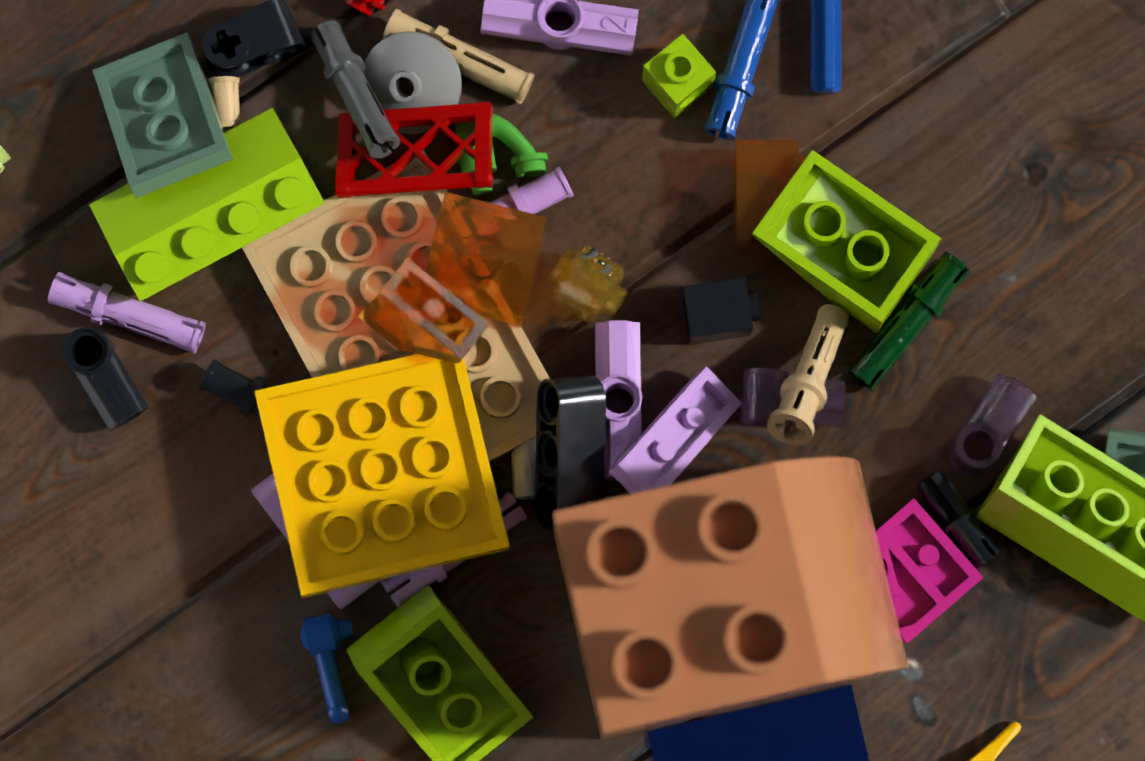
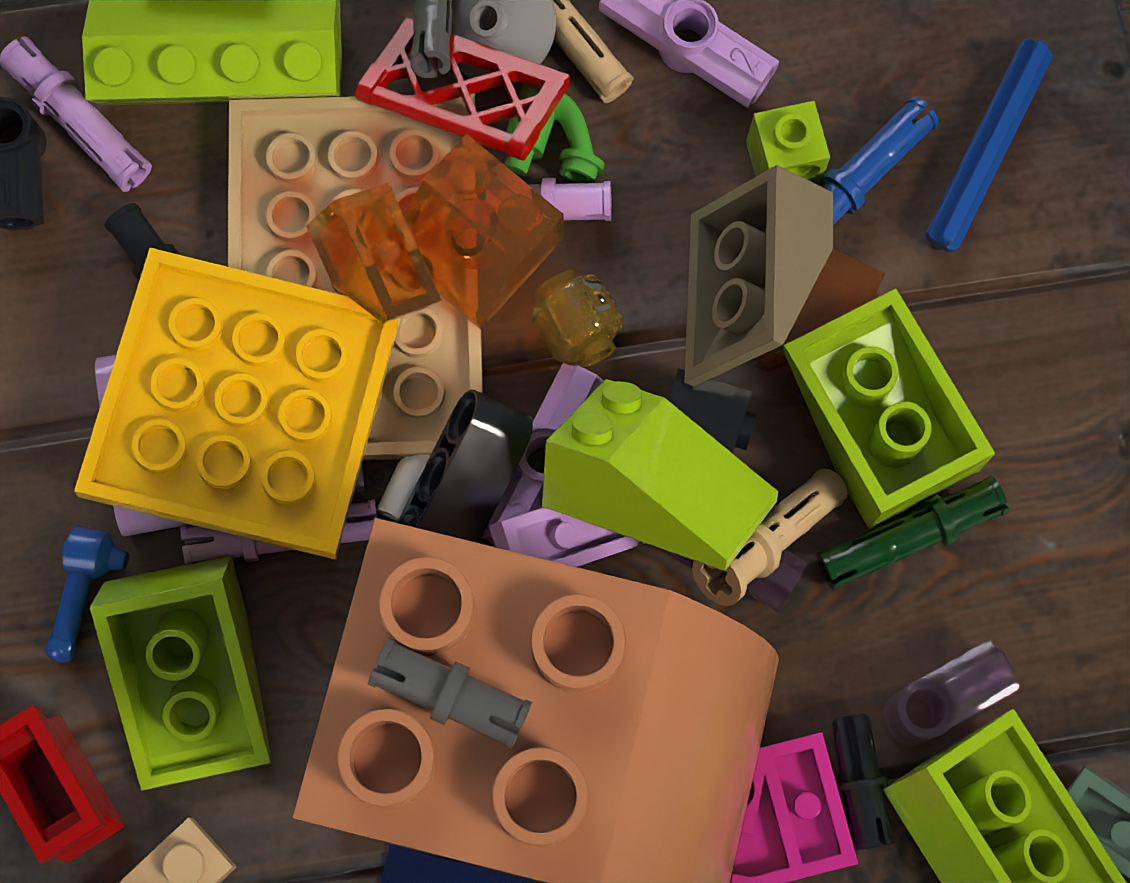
camera: 25 degrees right, 5 degrees down
(666, 602) = (449, 693): none -> dark grey pin
(703, 190) = (753, 269): none -> dark tan slope
(708, 377) = (653, 476): none -> lime slope

